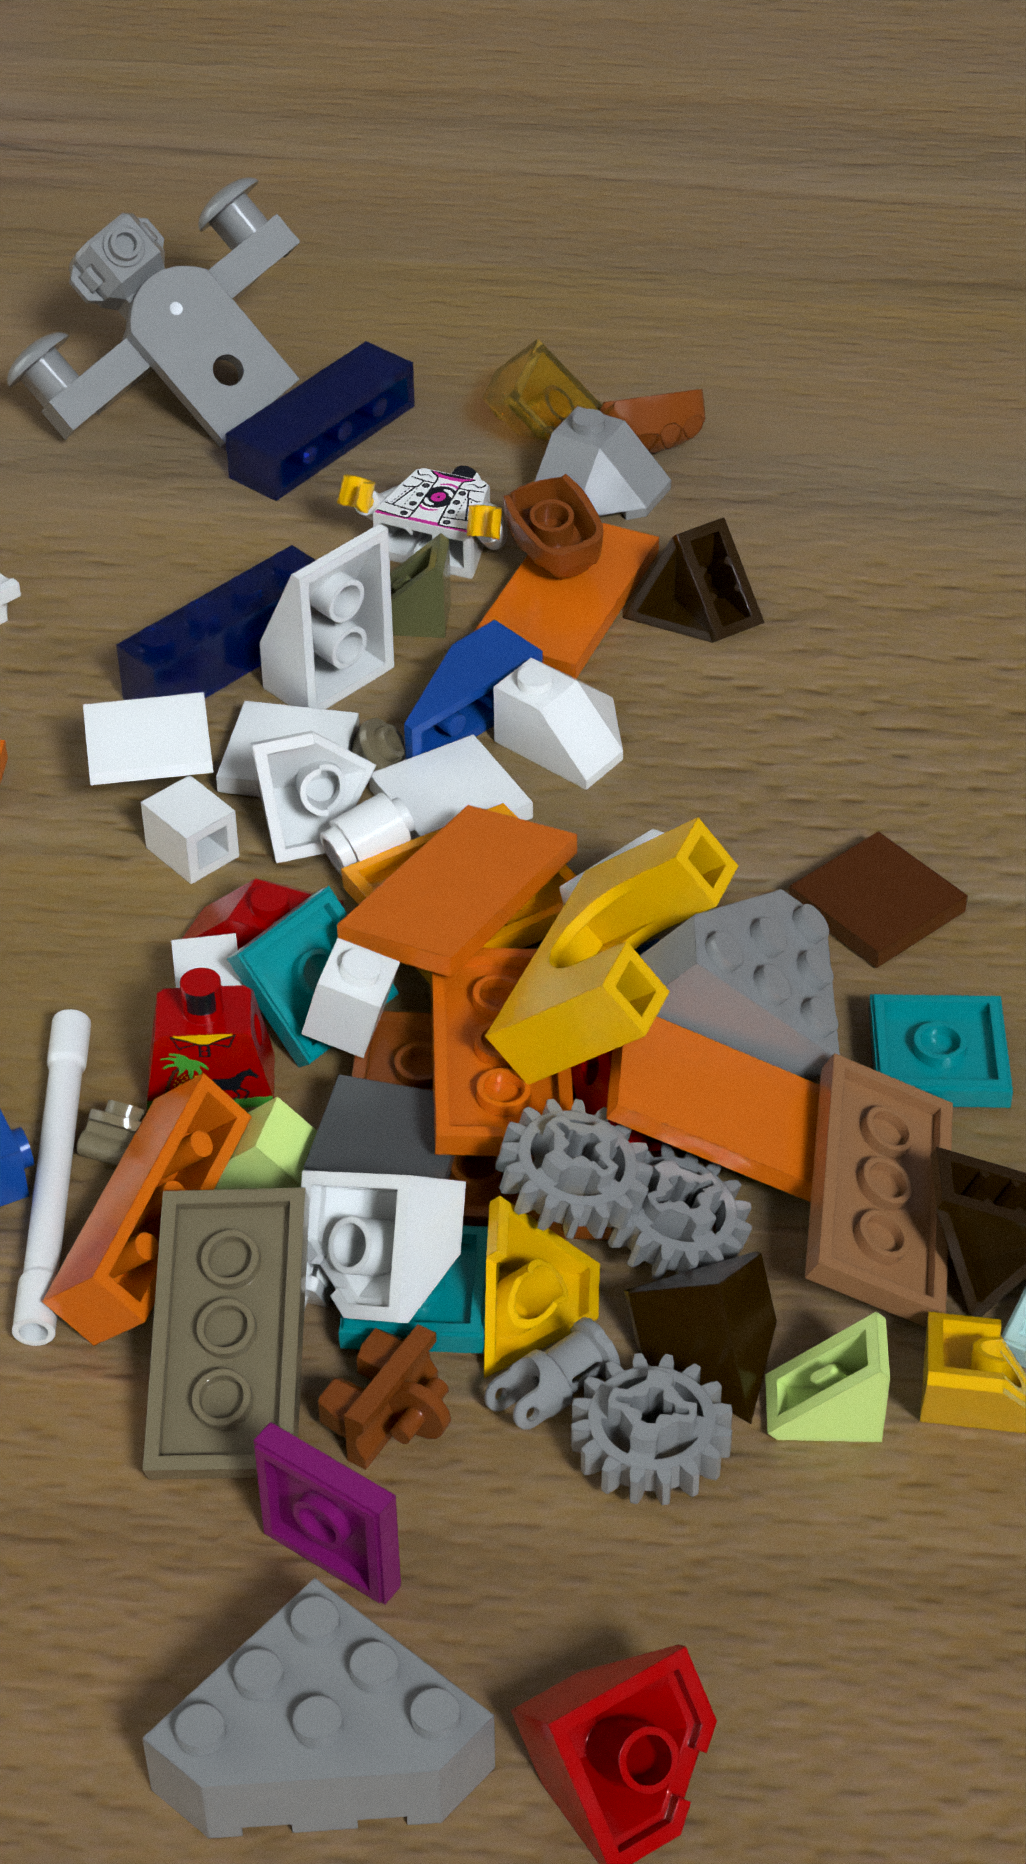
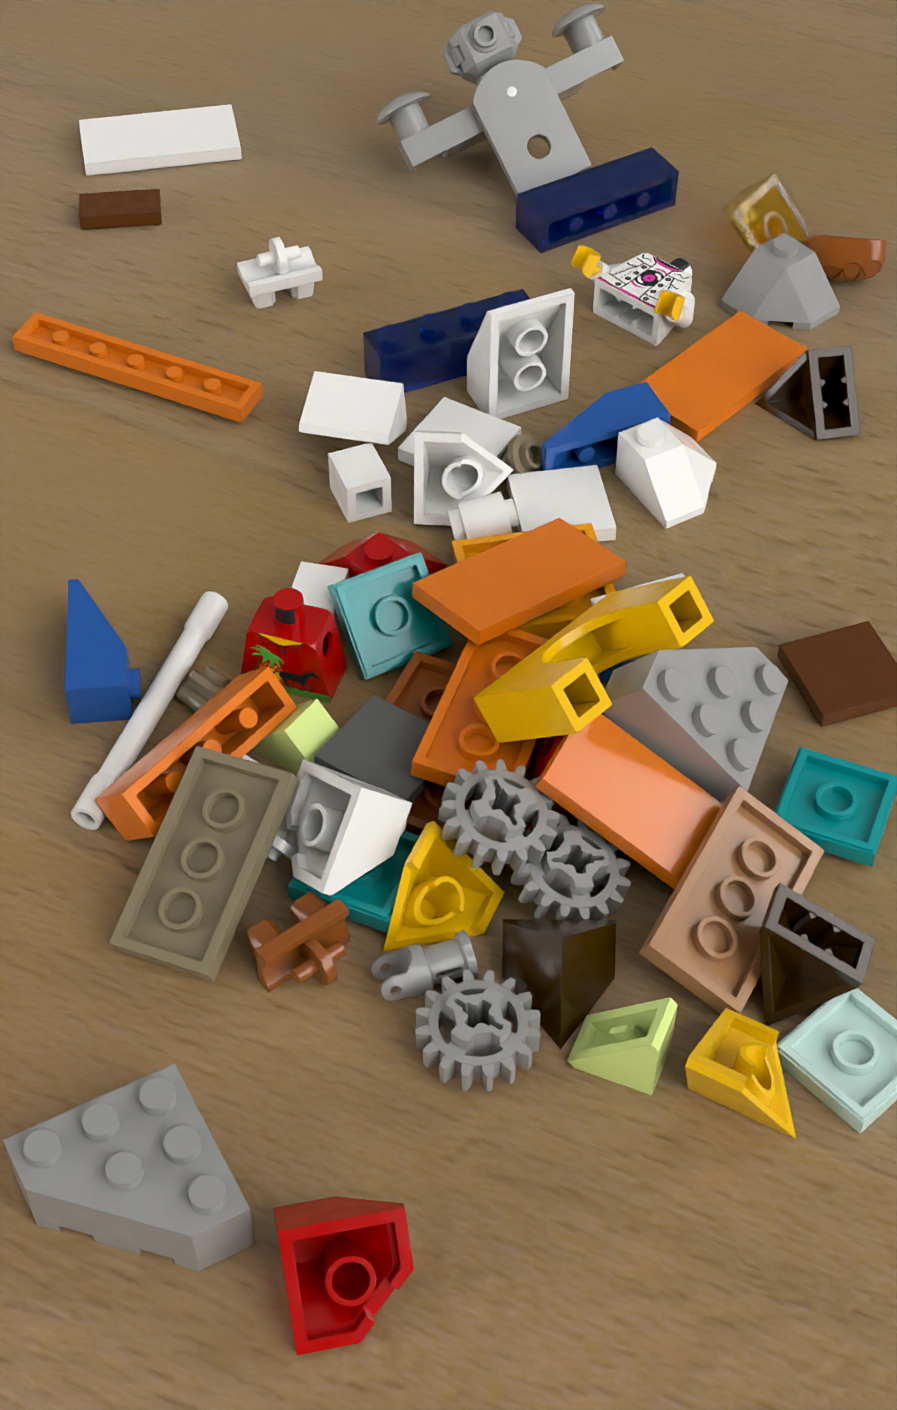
camera: 20 degrees right, 5 degrees up
(328, 1513) = (209, 1018): magenta tile -> none
(350, 997) = (401, 639): white brick -> none
(422, 592) = (605, 348): olive slope -> none
(555, 525) = (724, 320): dark orange piece -> none

